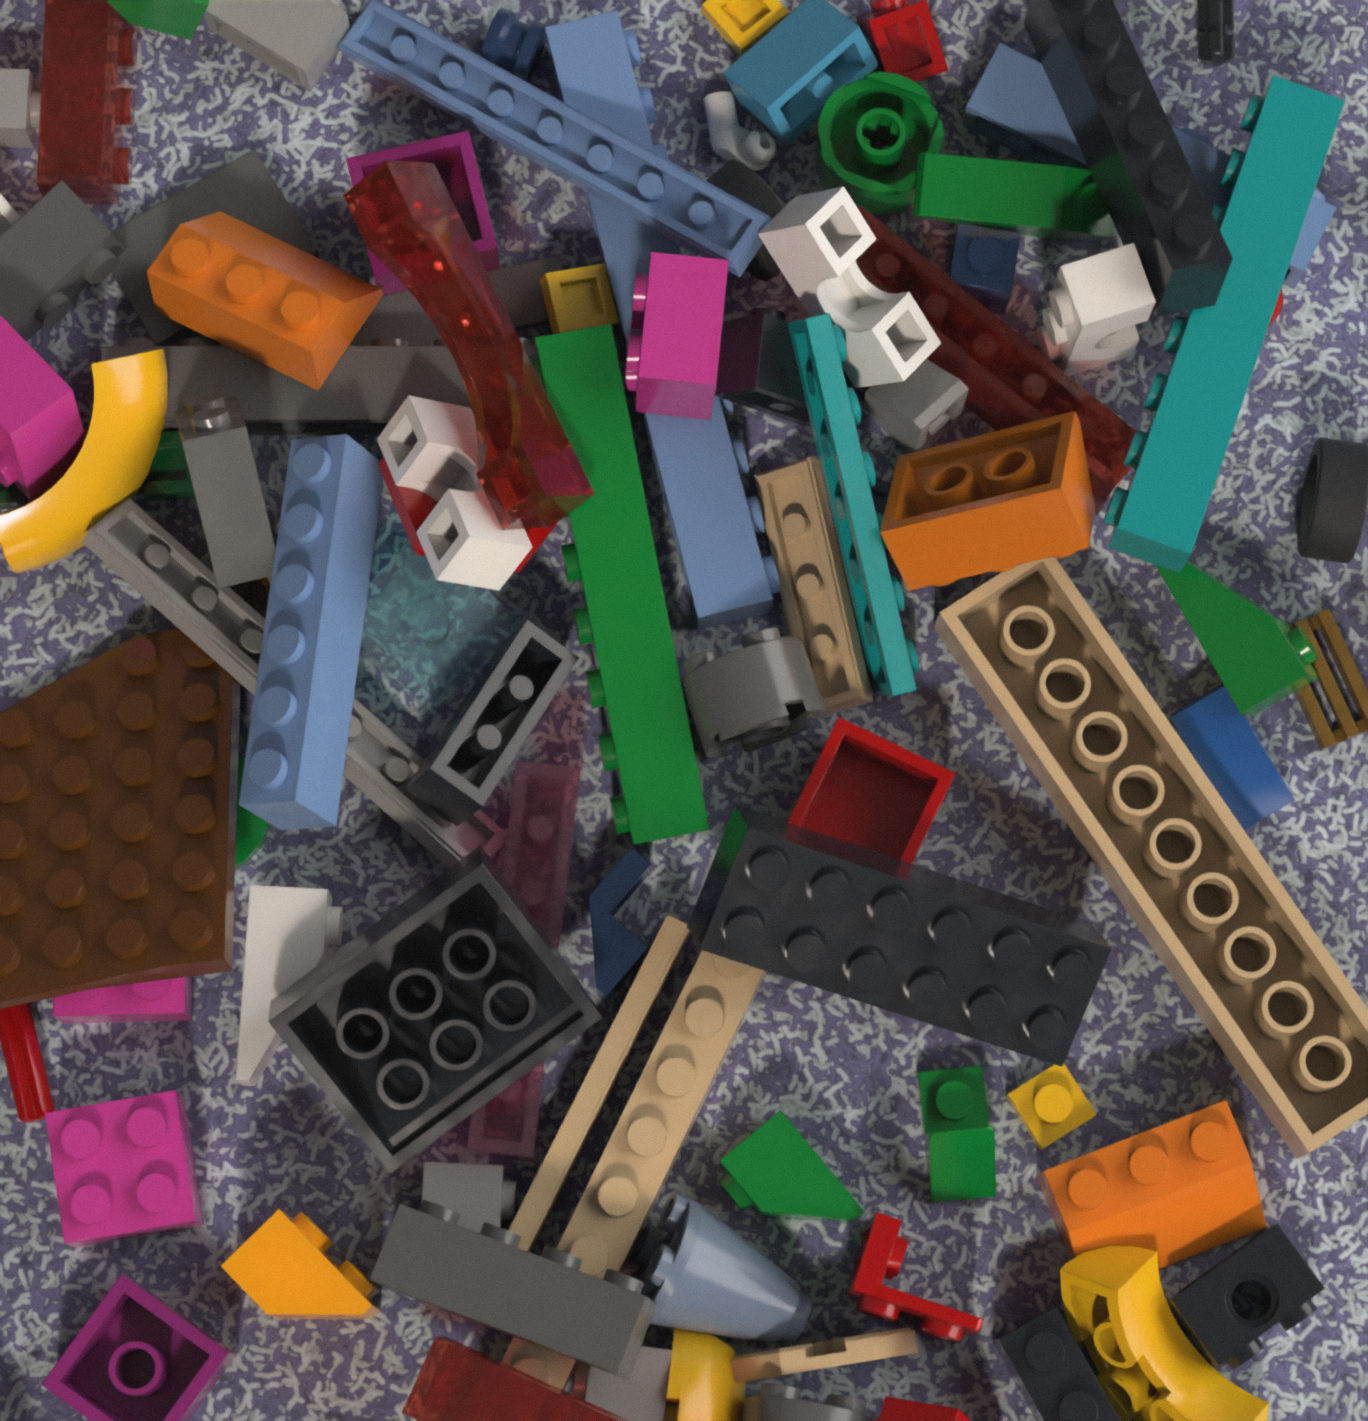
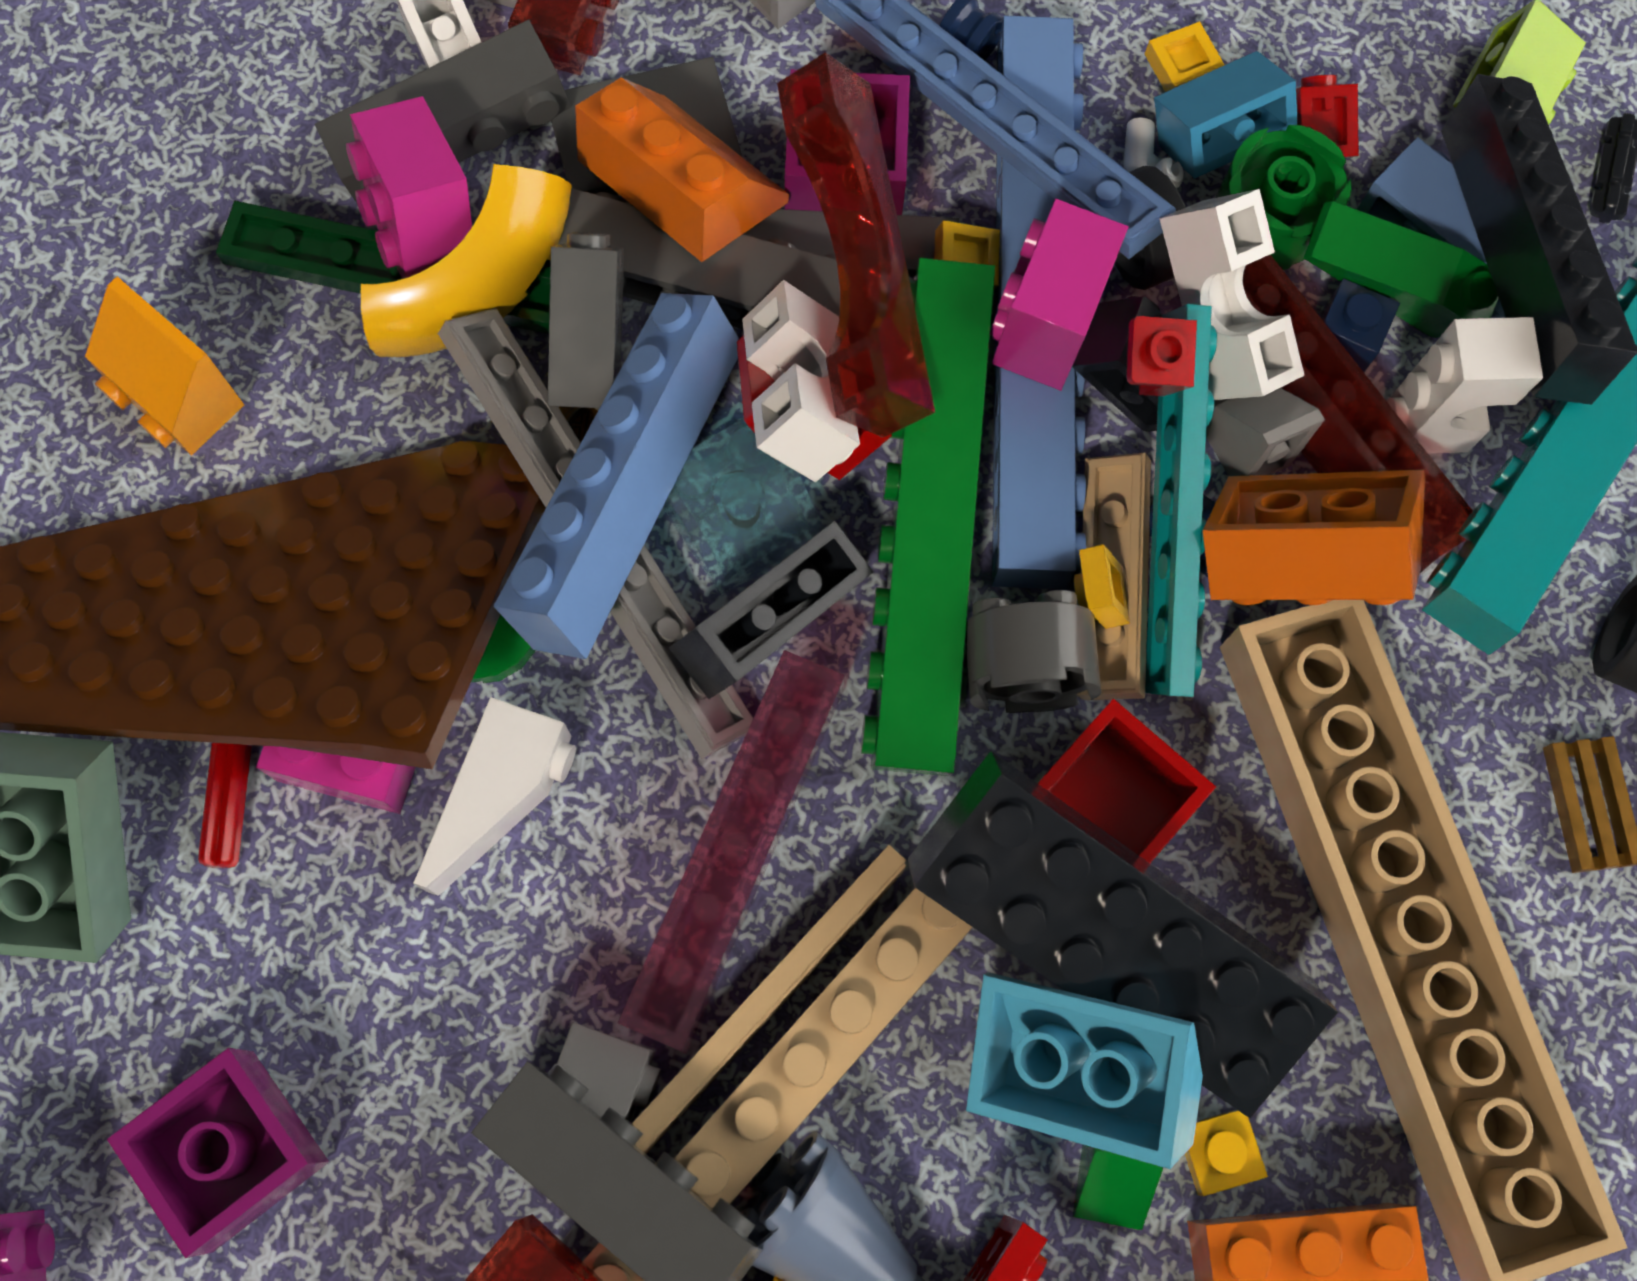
camera: 15 degrees right, 5 degrees down
(124, 1169) = (277, 939): dark pink piece -> none
(294, 1277) = (406, 1102): light orange slope -> none
(433, 1010) = (625, 872): black slope -> none
(615, 947) = (827, 861): dark blue slope -> none
(785, 1177) = (933, 1147): green slope -> none
(792, 377) = (1161, 354): none -> red bracket
(802, 608) = (1102, 587): none -> yellow plate
(899, 1066) = (1086, 1070): none -> medium azure slope
(1232, 756) = (1495, 849): blue slope -> none
(1246, 644) = (1527, 738): green slope -> none

